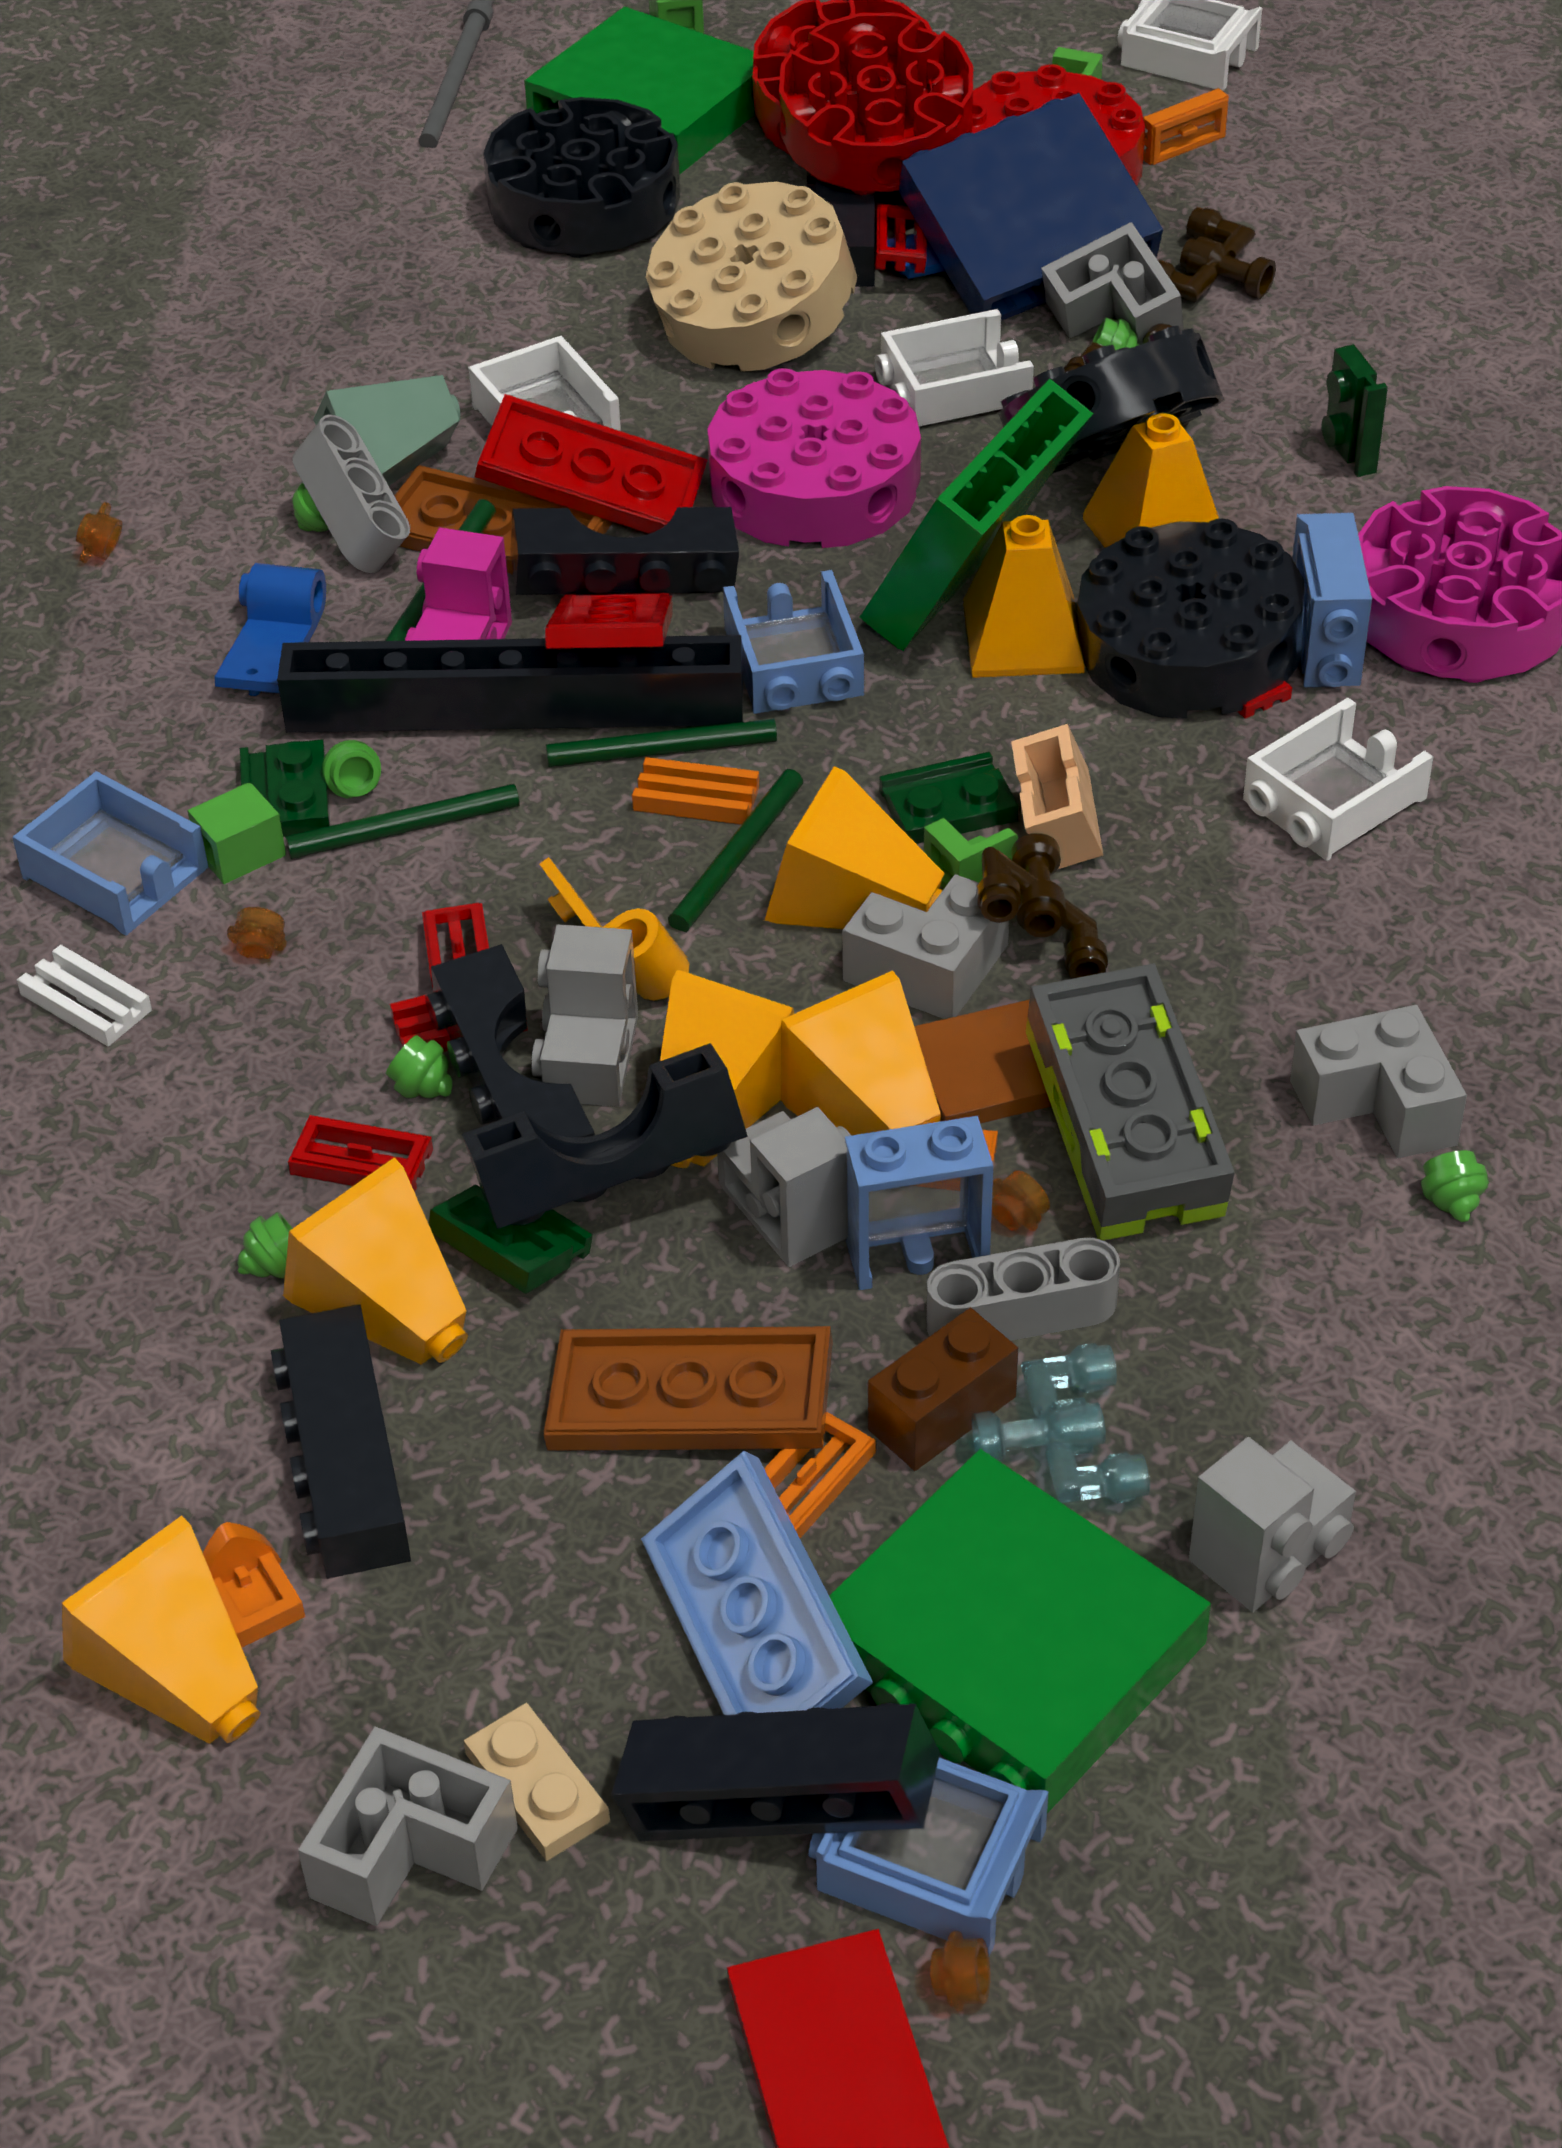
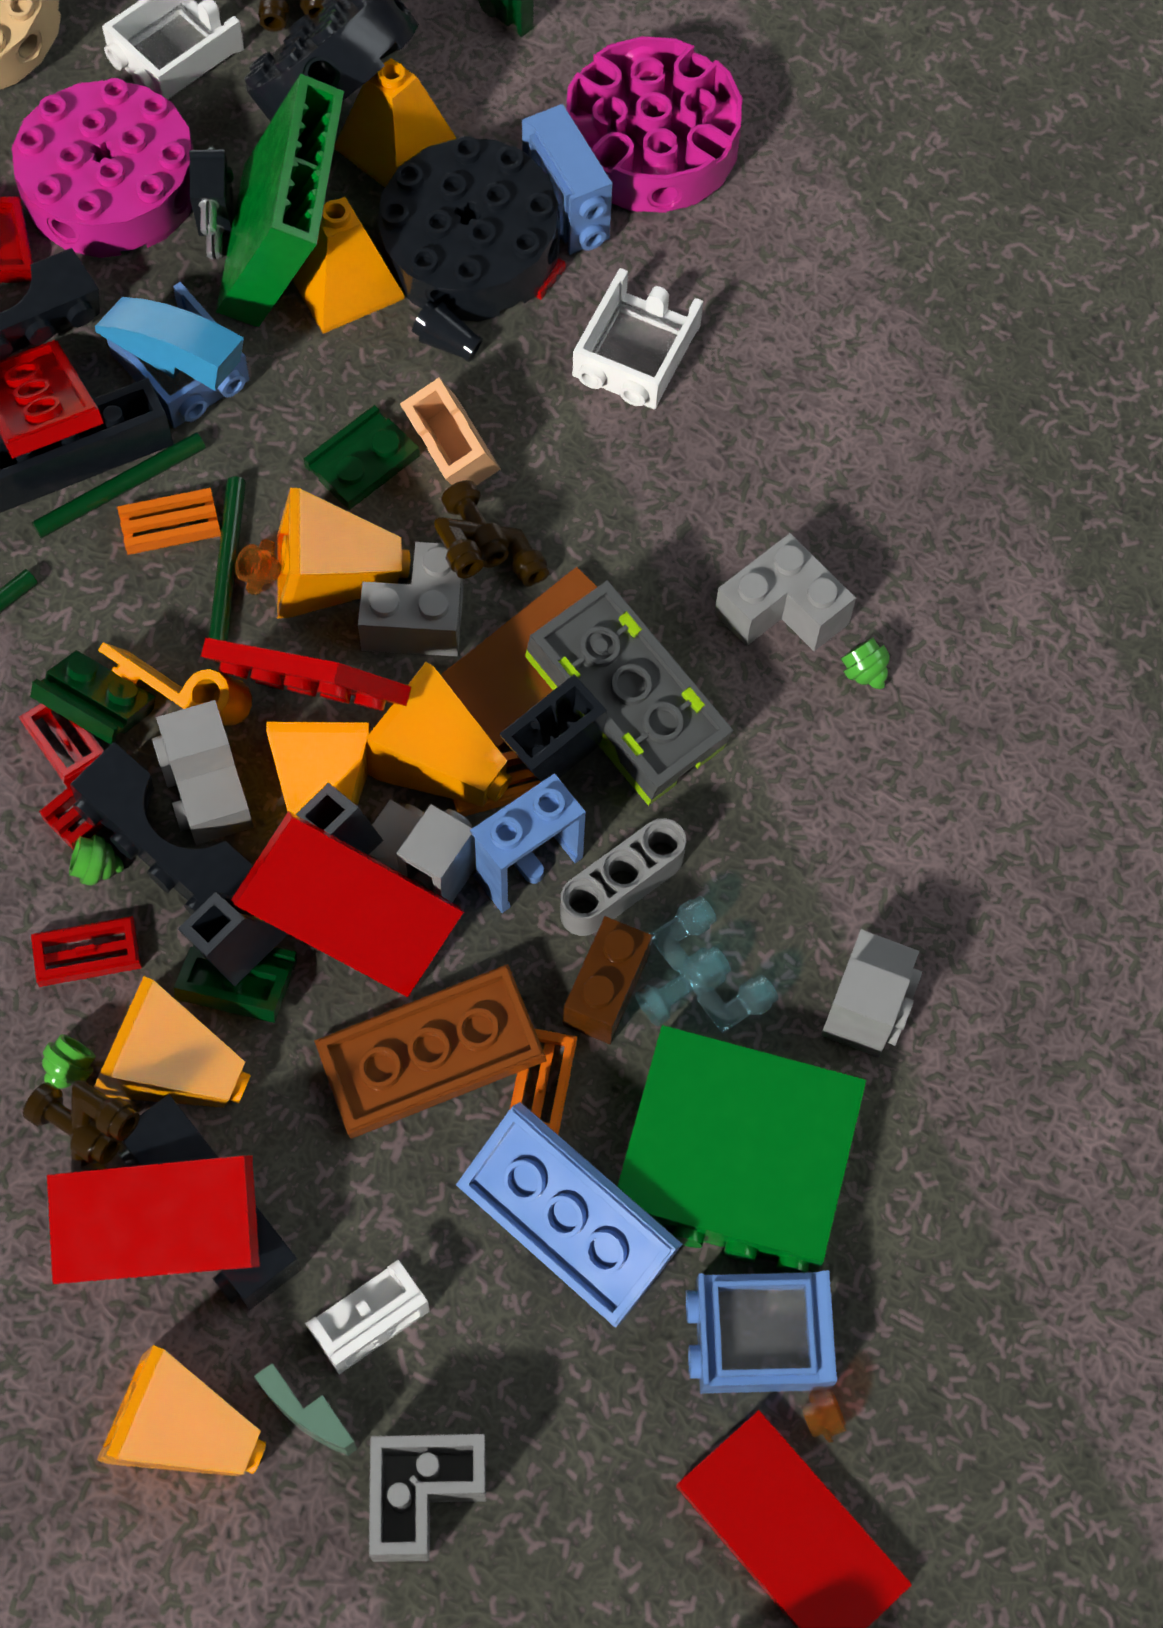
camera: 30 degrees left, 20 degrees up
(251, 1582) = (203, 1345): orange tile -> none
(252, 1286) = (94, 1122): none -> dark brown piece
(267, 1418) = (153, 1220): none -> red tile
(325, 1699) = (315, 1419): none -> sand green slope
(456, 1638) = (368, 1317): none -> white hinge
(506, 911) = (93, 696): none -> dark green plate
(548, 1790) = (479, 1402): tan plate -> none
(667, 1179) = (347, 904): none -> red tile
(749, 938) = (305, 674): none -> red plate
(764, 856) = (257, 566): none -> clear orange plate
(777, 1773) = (652, 1340): black brick -> none
(792, 613) = (173, 339): none -> dark azure slope
(908, 498) = (211, 196): none -> black piece
(957, 855) = (406, 510): bright green panel -> none
(1019, 1201) = (587, 795): clear orange plate -> none
(1020, 1096) = (553, 734): none -> black torso
(1109, 706) = (446, 331): none -> black cone

